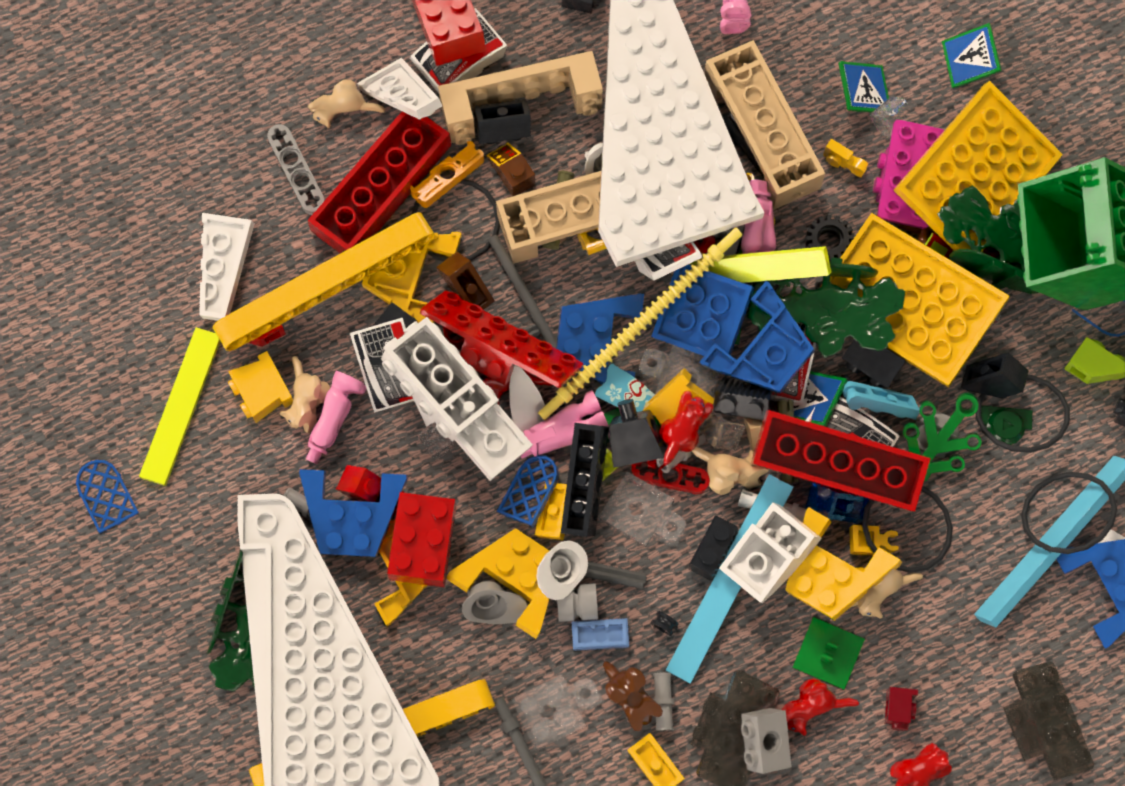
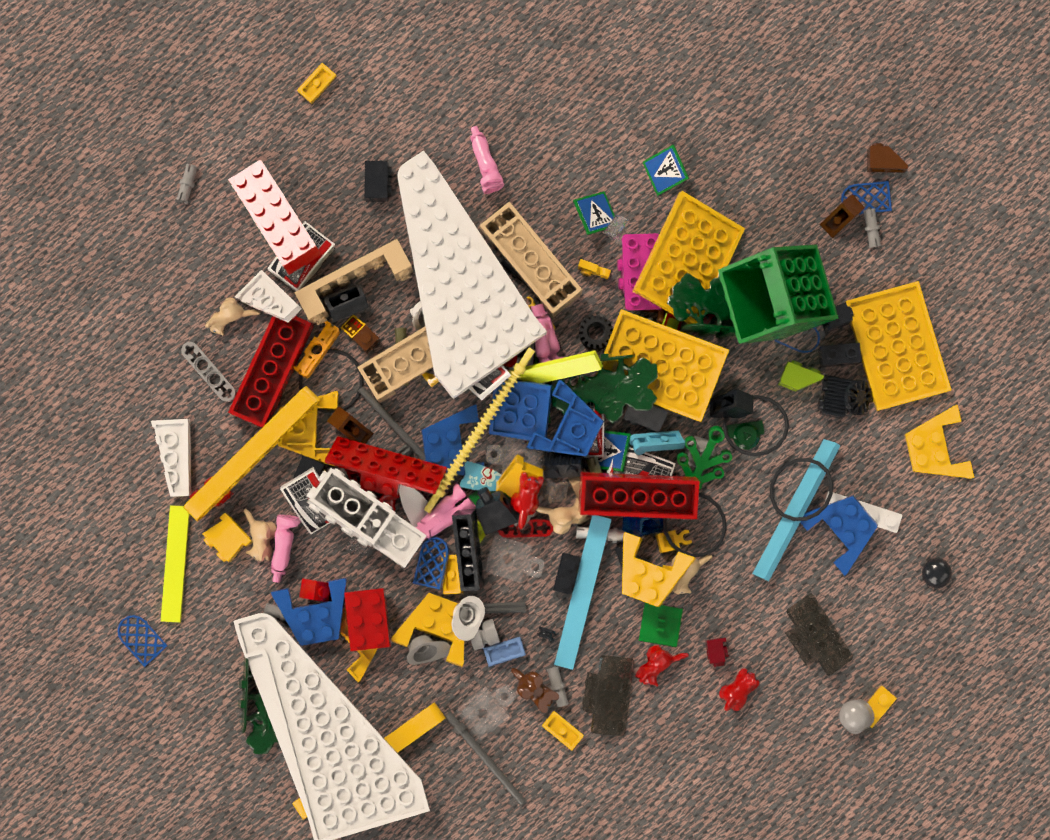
camera: 15 degrees left, 10 degrees up
(769, 552) = (605, 570): white slope -> none
(775, 752) = (639, 704): light grey brick -> none

